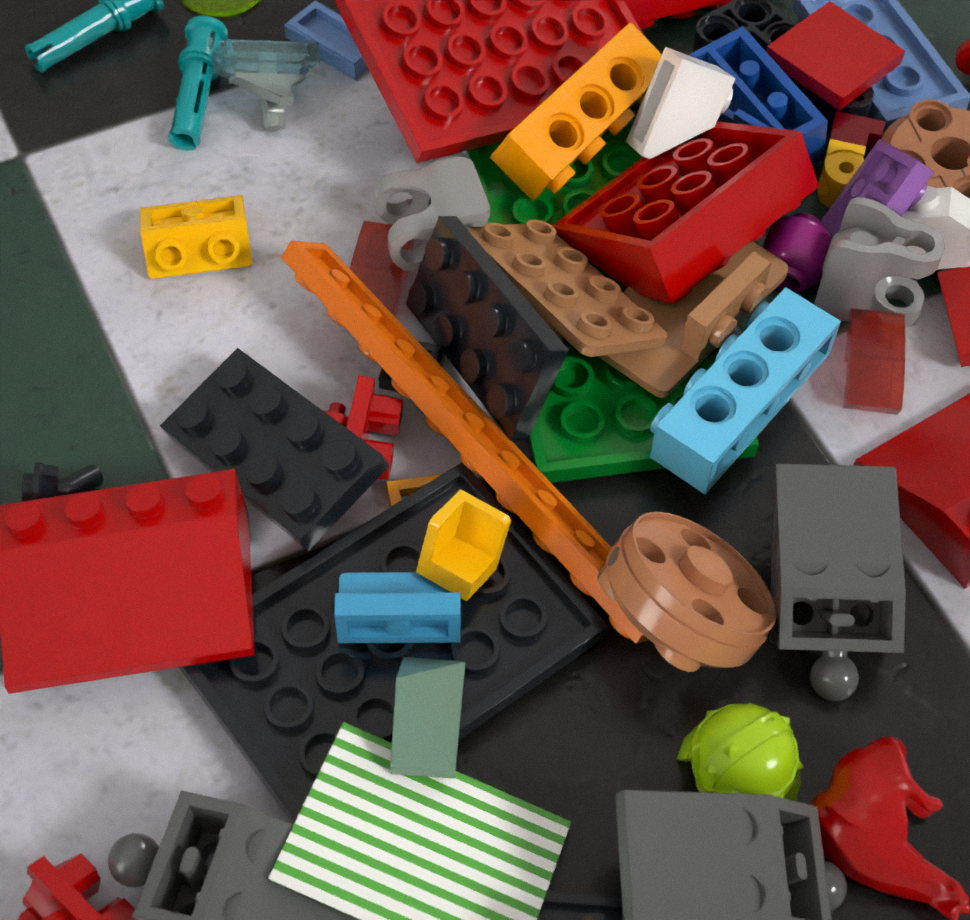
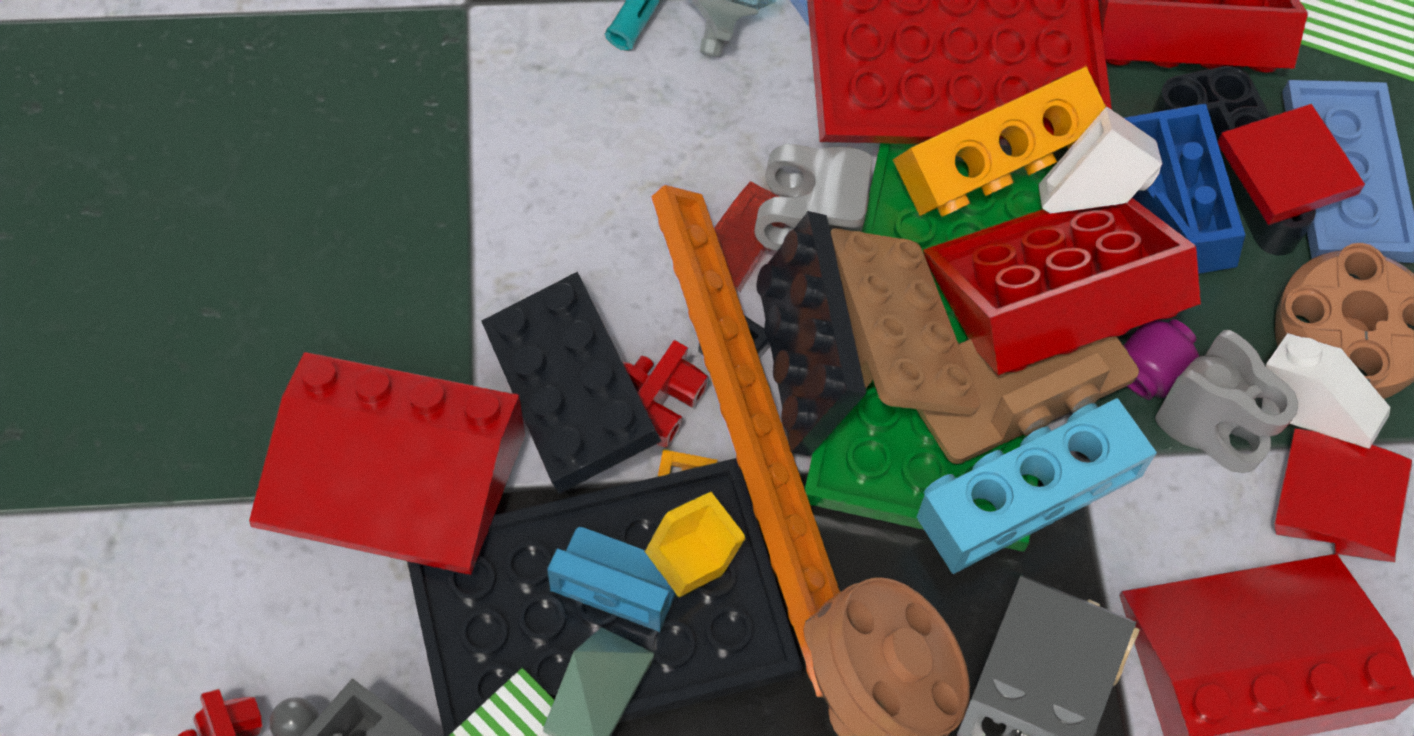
camera: 20 degrees right, 5 degrees up
(46, 482) = (357, 346): black plate -> none
(195, 237) = (589, 142): yellow bracket -> none
(846, 149) = (1250, 284): leg -> none
(875, 361) = (1188, 498): clear red slope -> none
(884, 177) = (1272, 322): medium lavender plate -> none

